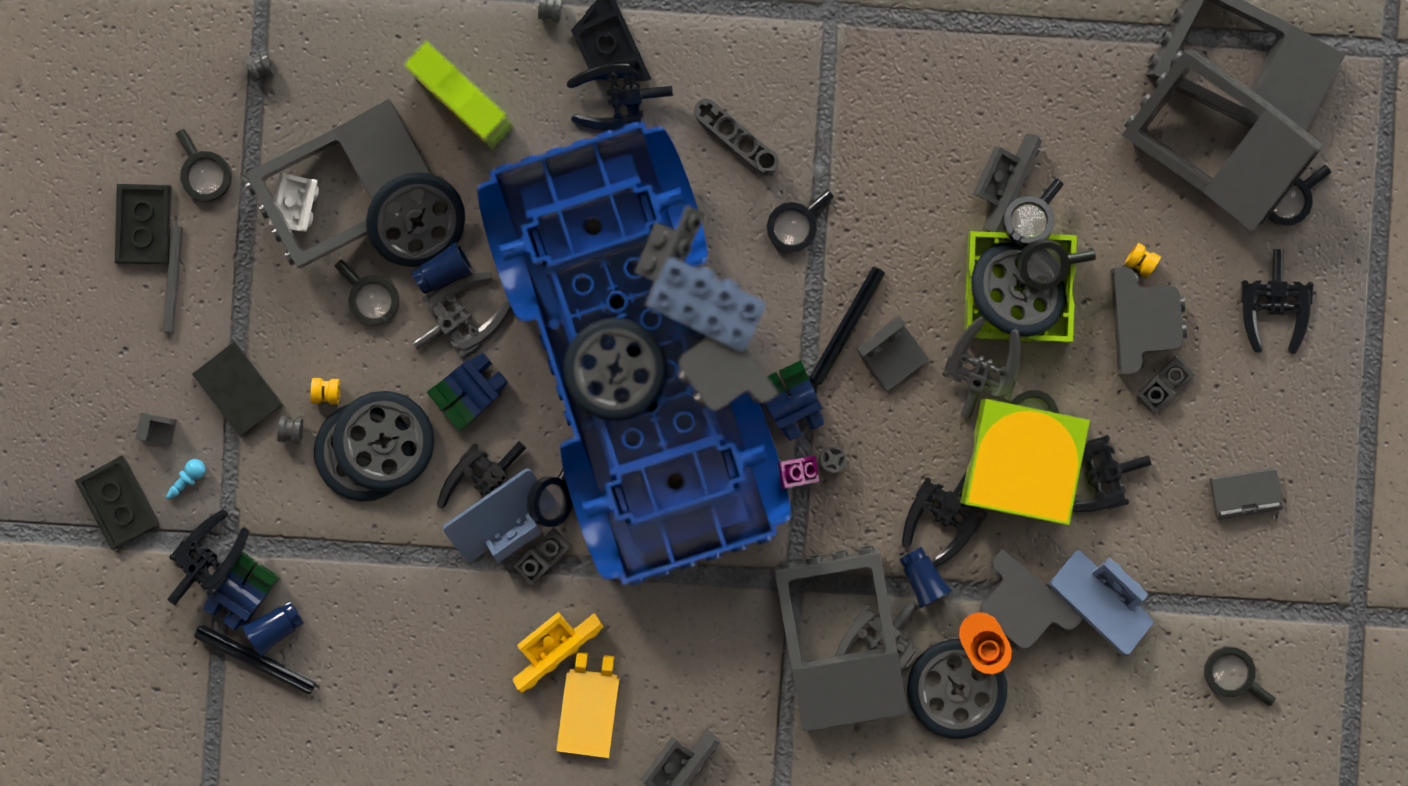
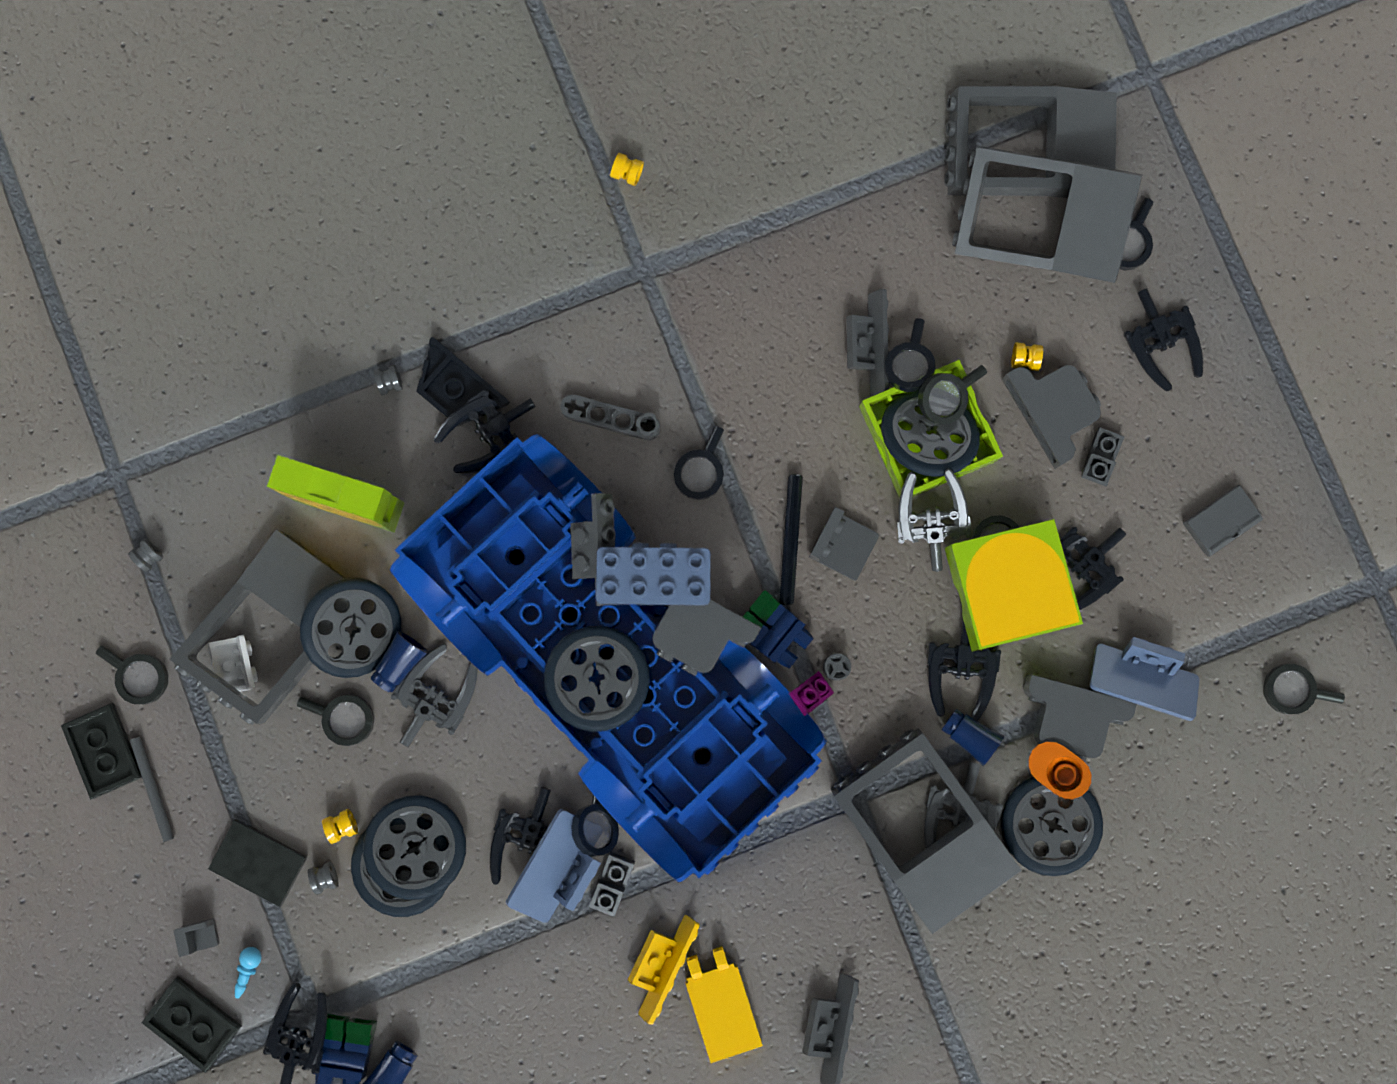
camera: 25 degrees left, 5 degrees down
(473, 384) = (476, 755): dark blue hips -> none

